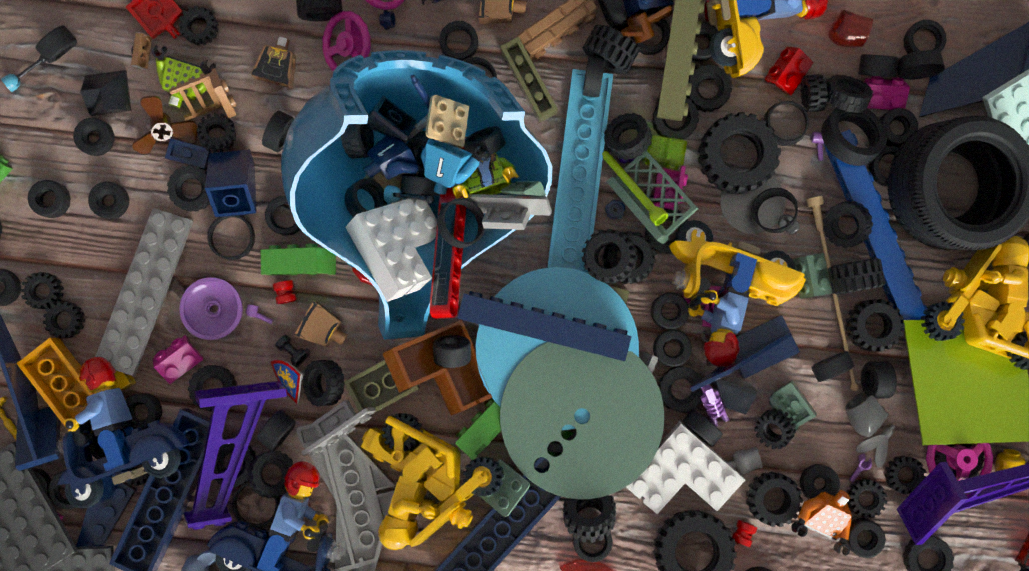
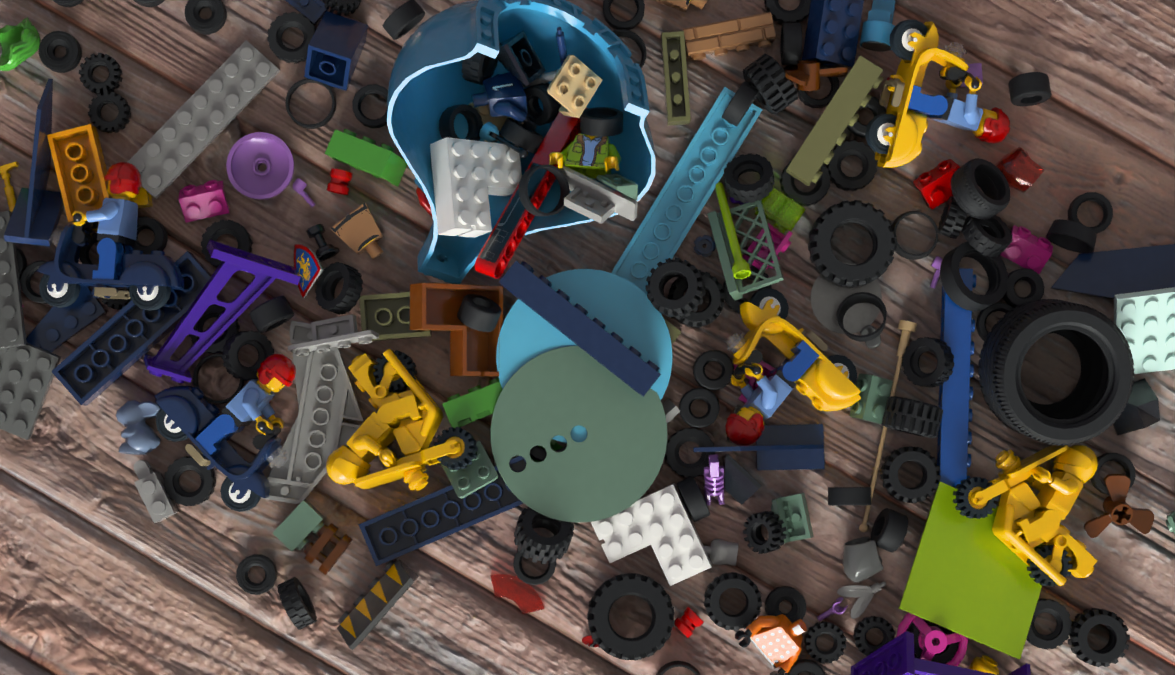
camera: 20 degrees right, 0 degrees up
(449, 164) = (557, 128): dark azure torso -> none
(827, 58) = (970, 197): none -> black tyre
(878, 65) = (1031, 218): black tyre -> none

